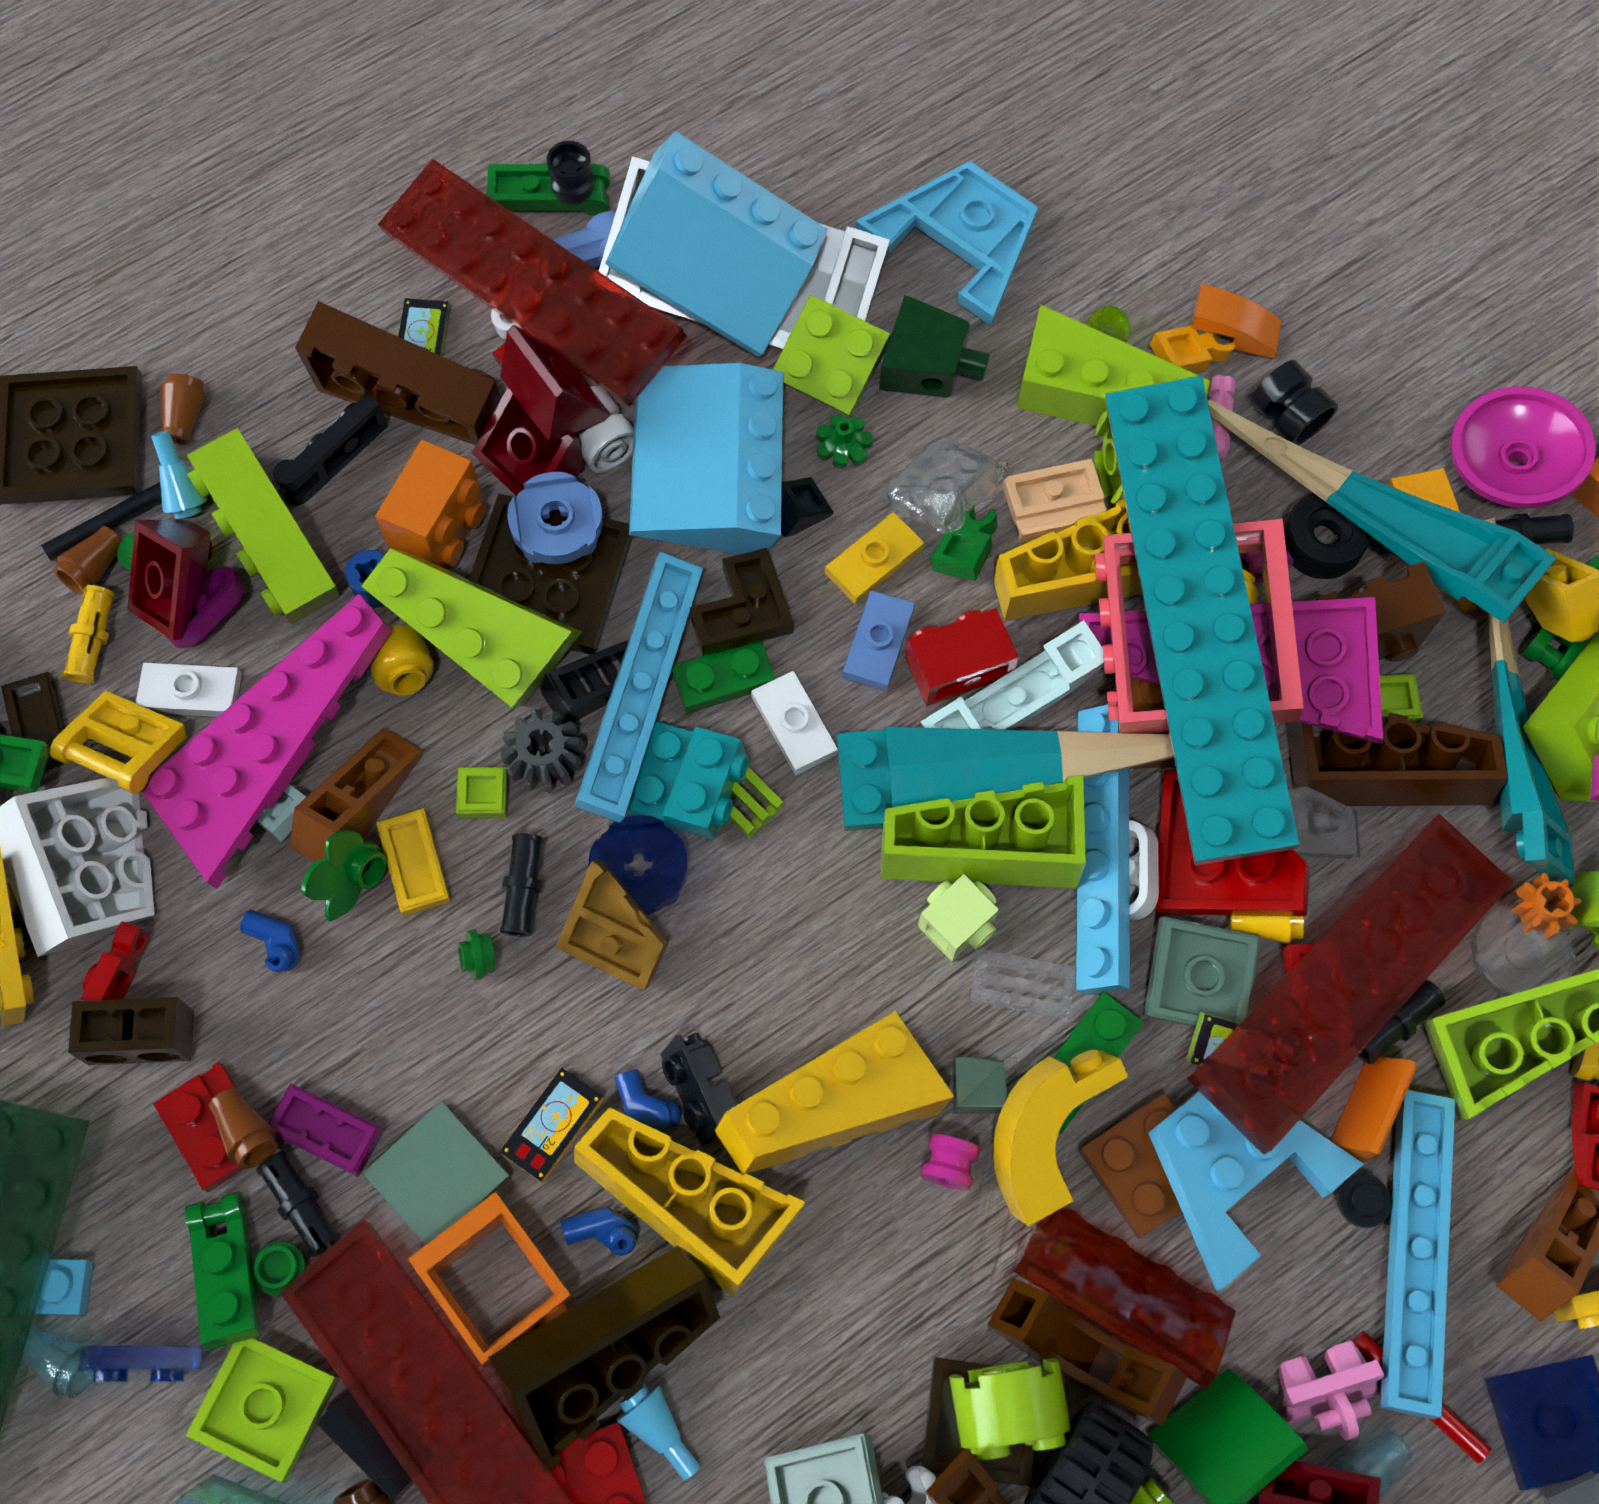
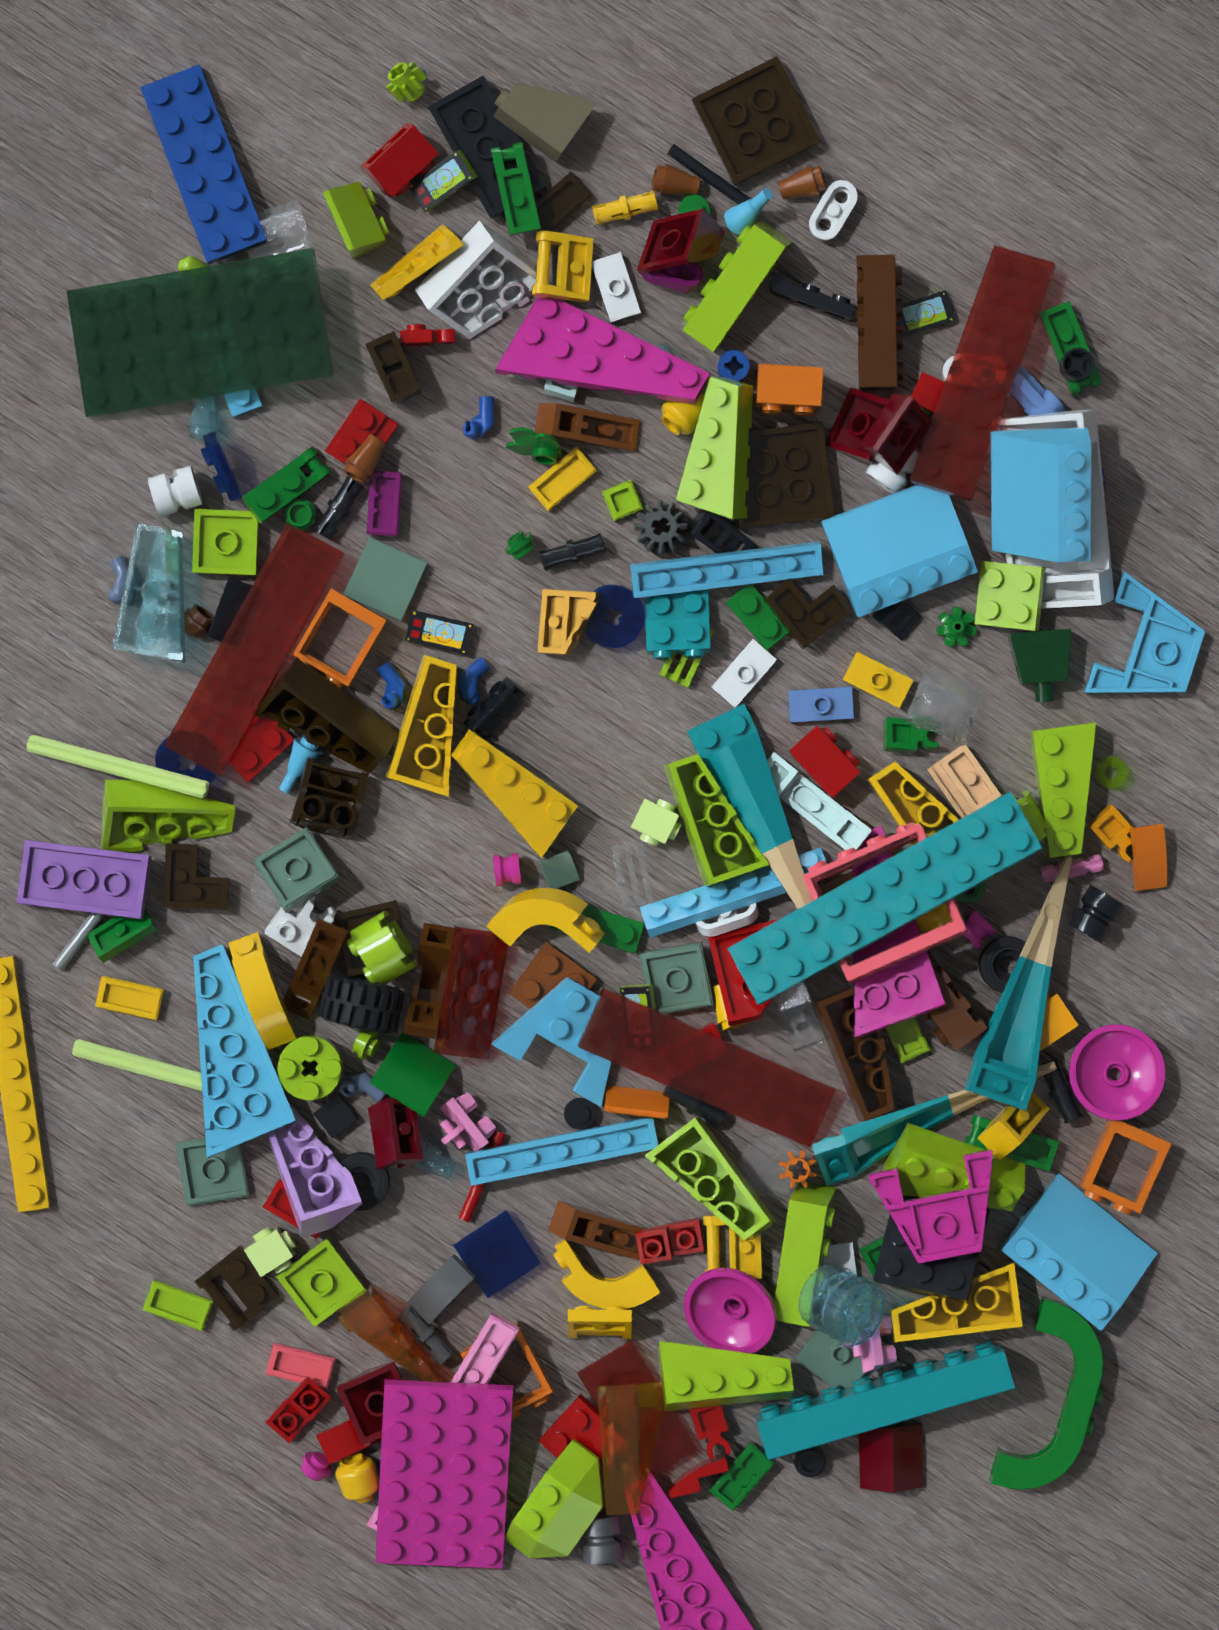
camera: 70 degrees right, 20 degrees up
(142, 1456) = (175, 491): none -> white wheel
(235, 389) = (832, 211): none -> white plate
(558, 543) = (811, 487): medium blue plate -> none
(735, 1402) = (329, 799): none -> dark brown slope

